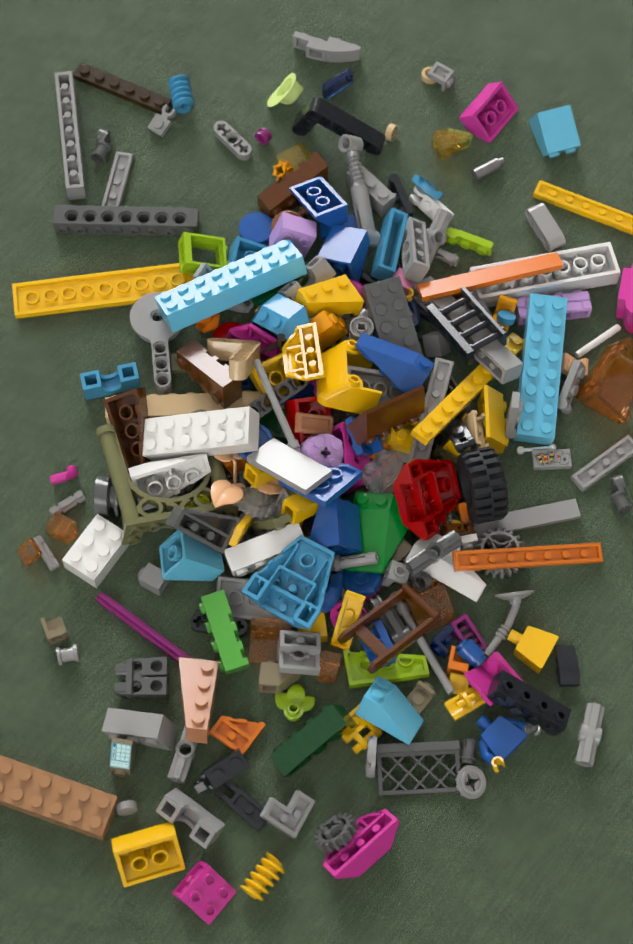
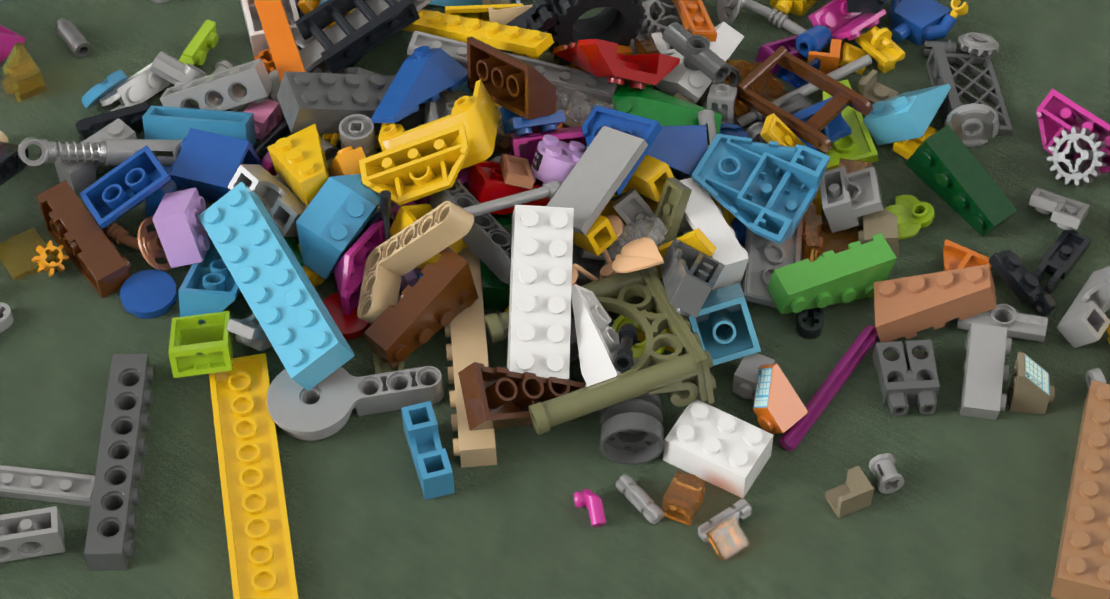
camera: 90 degrees left, 15 degrees down
(123, 588) = (776, 400): none -> slope
(141, 480) = (624, 355): none -> black bar

